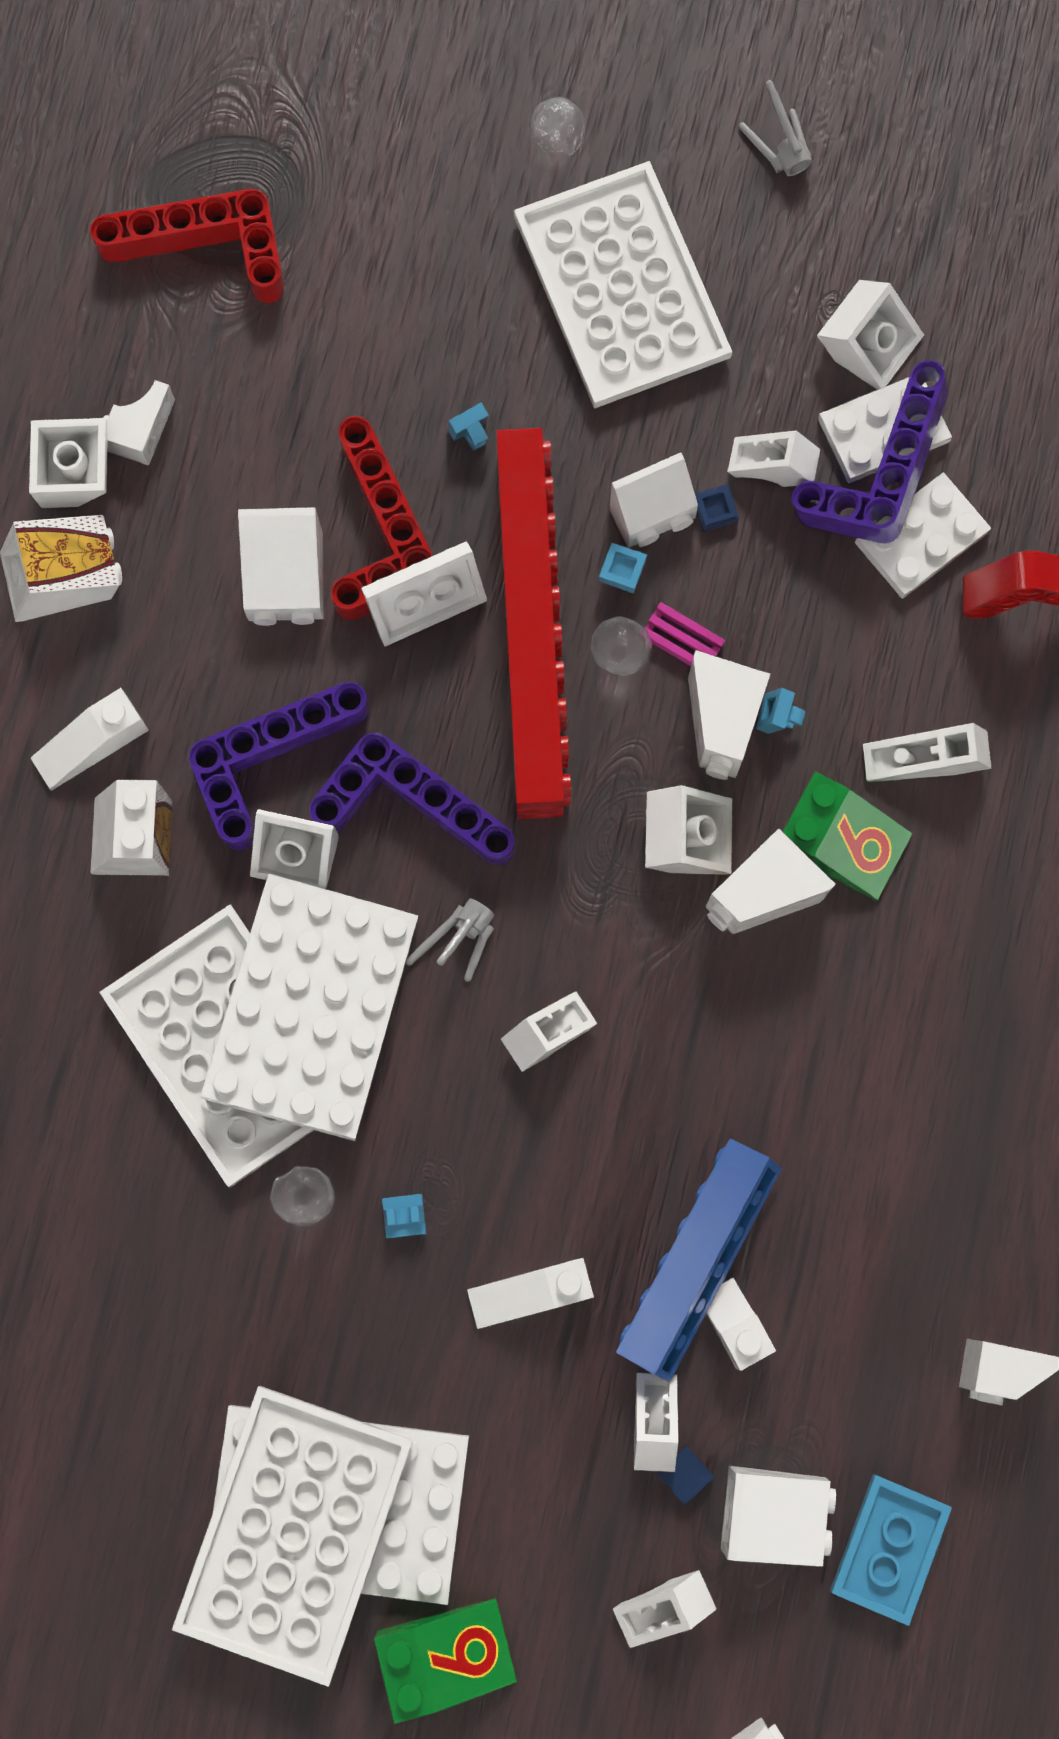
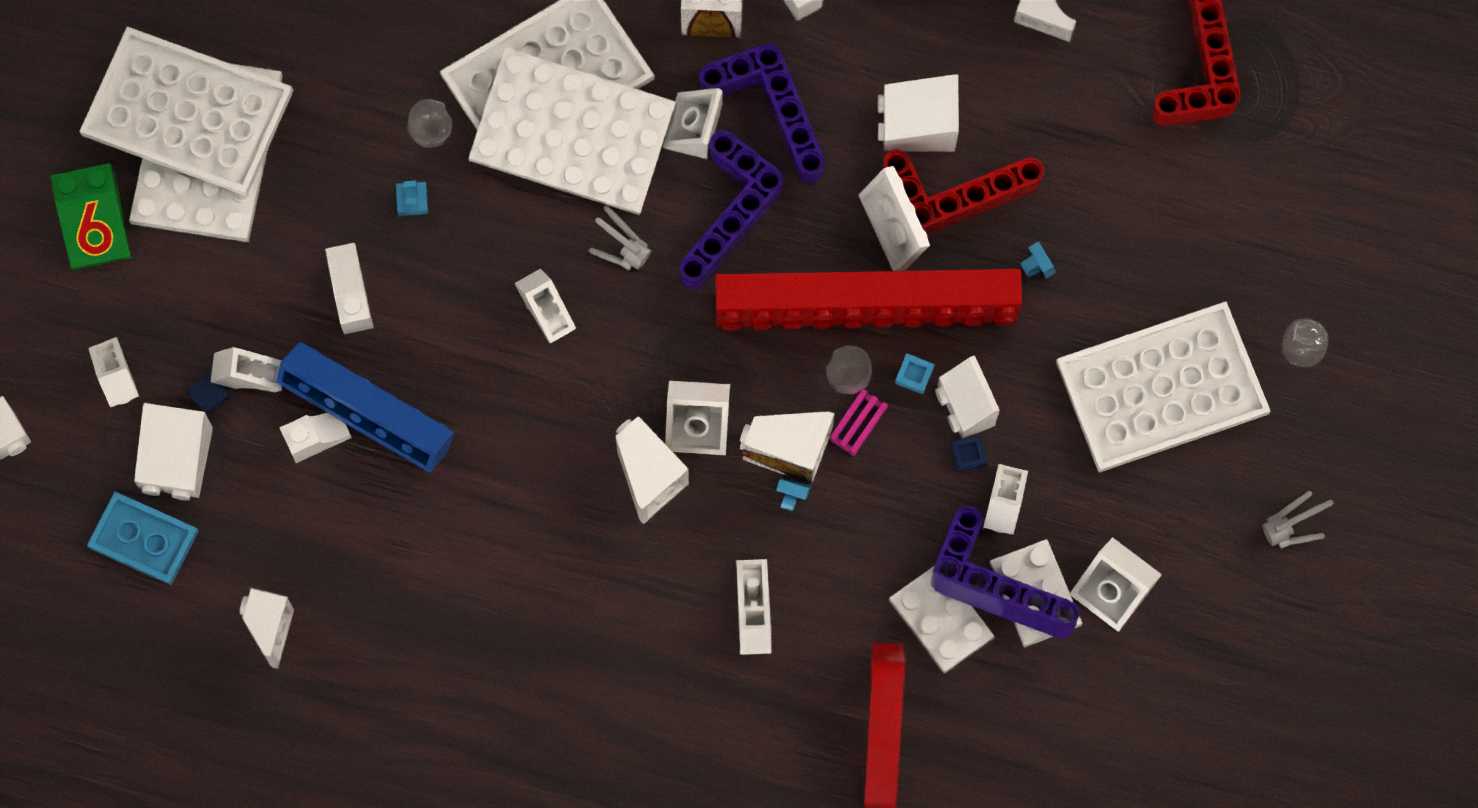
camera: 90 degrees right, 5 degrees down
(846, 836) = (689, 536): slope -> none

